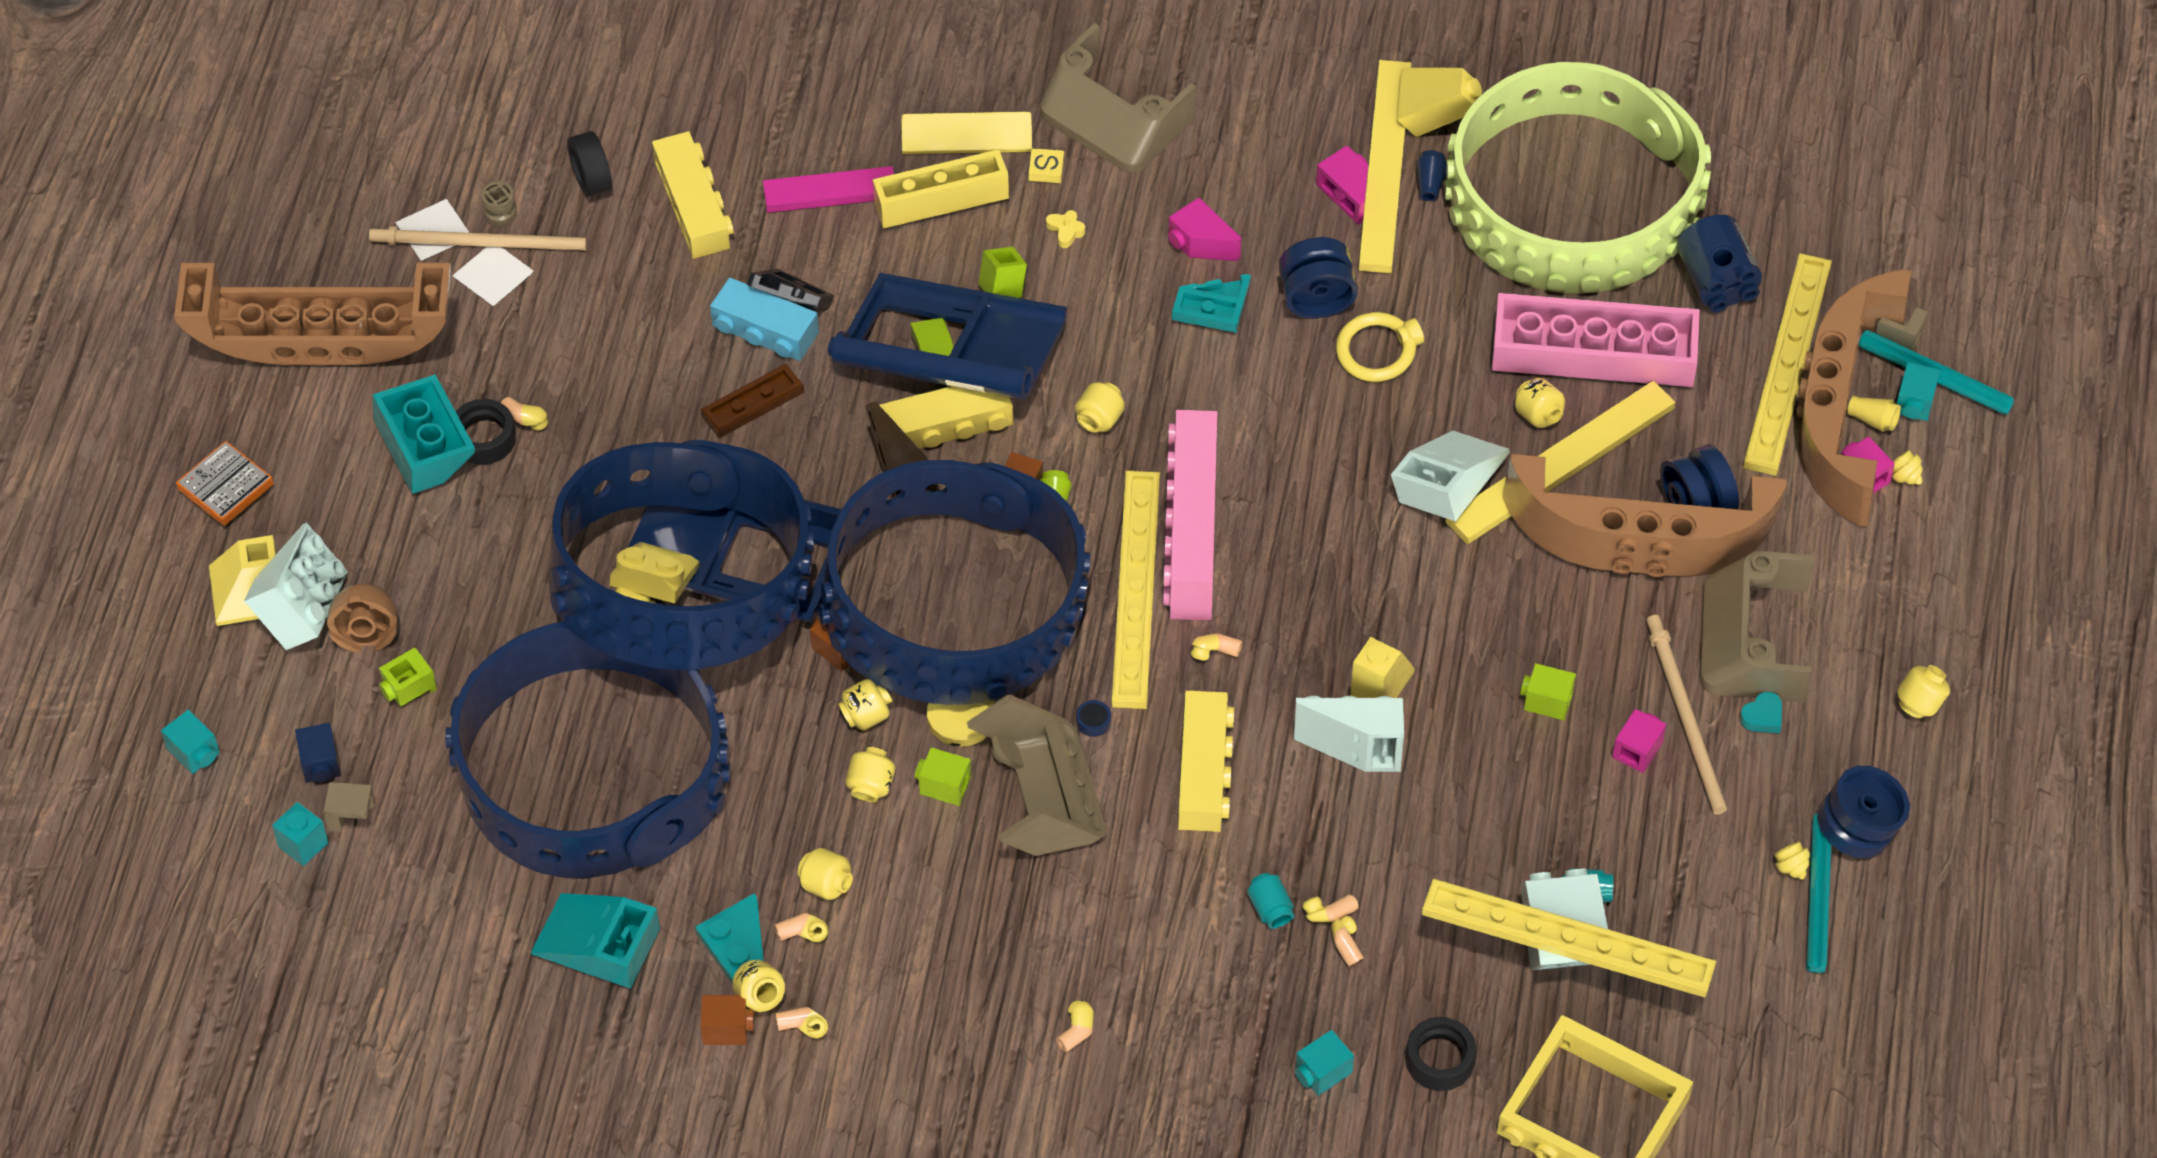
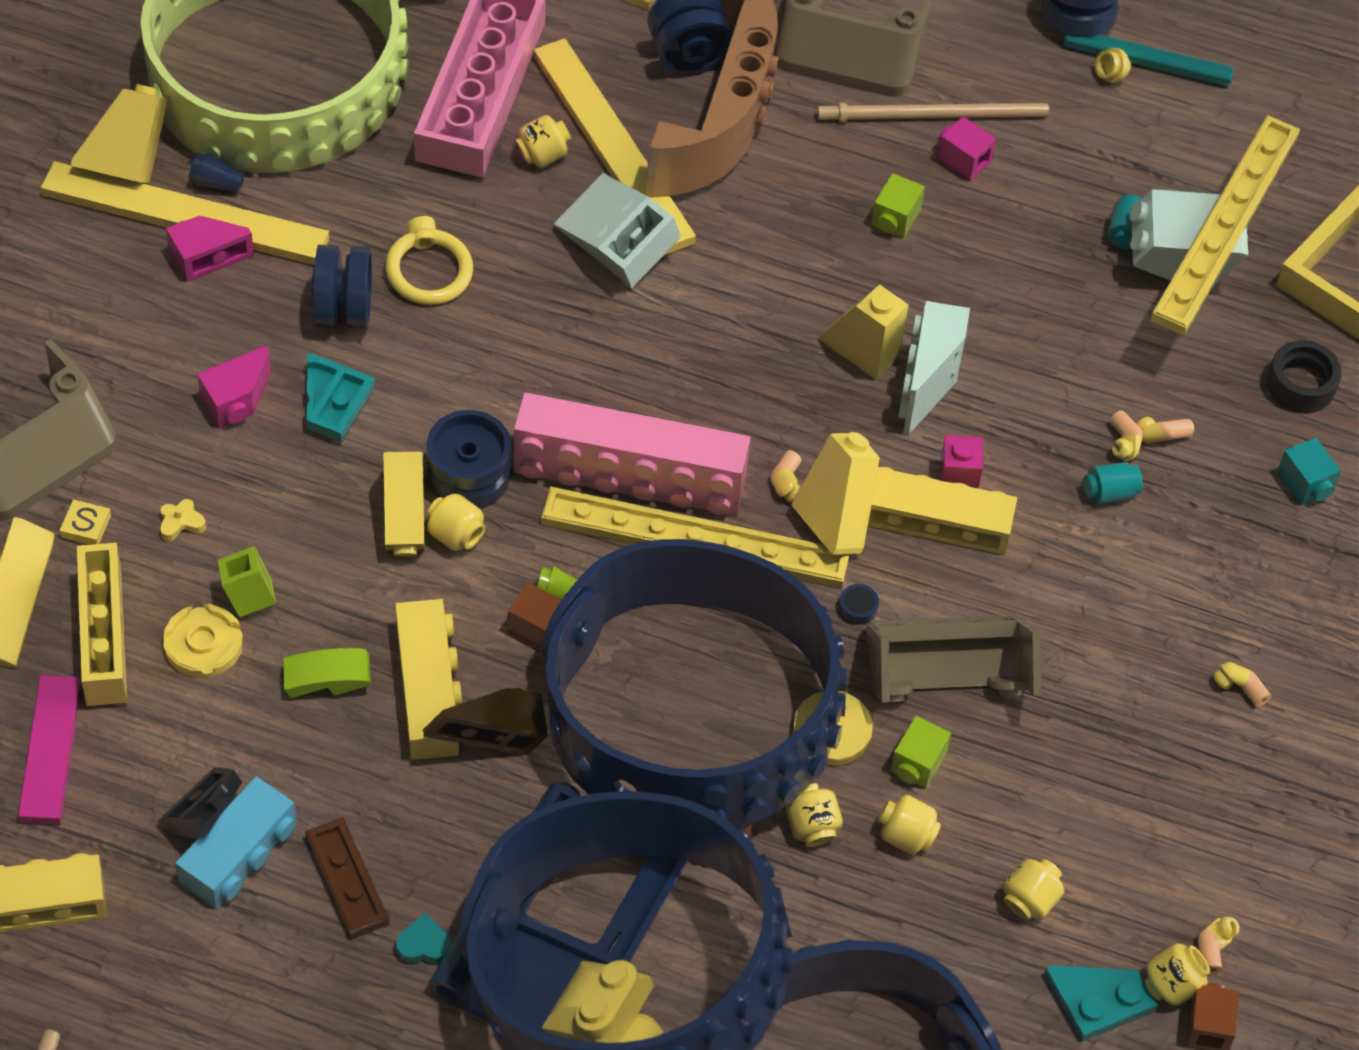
camera: 85 degrees left, 0 degrees up
(803, 926) = (1092, 922): arm -> none
(951, 262) = (203, 641): none -> light yellow tile
(996, 353) = (343, 597): dark blue piece -> none
(1115, 359) = (404, 502): none -> light yellow slope
(1154, 396) = (469, 457): none -> dark blue wheel
(1182, 671) = (840, 493): none -> light yellow slope
(1256, 773) = (962, 460): none -> dark pink brick
(1763, 714) = (943, 54): teal tile -> none

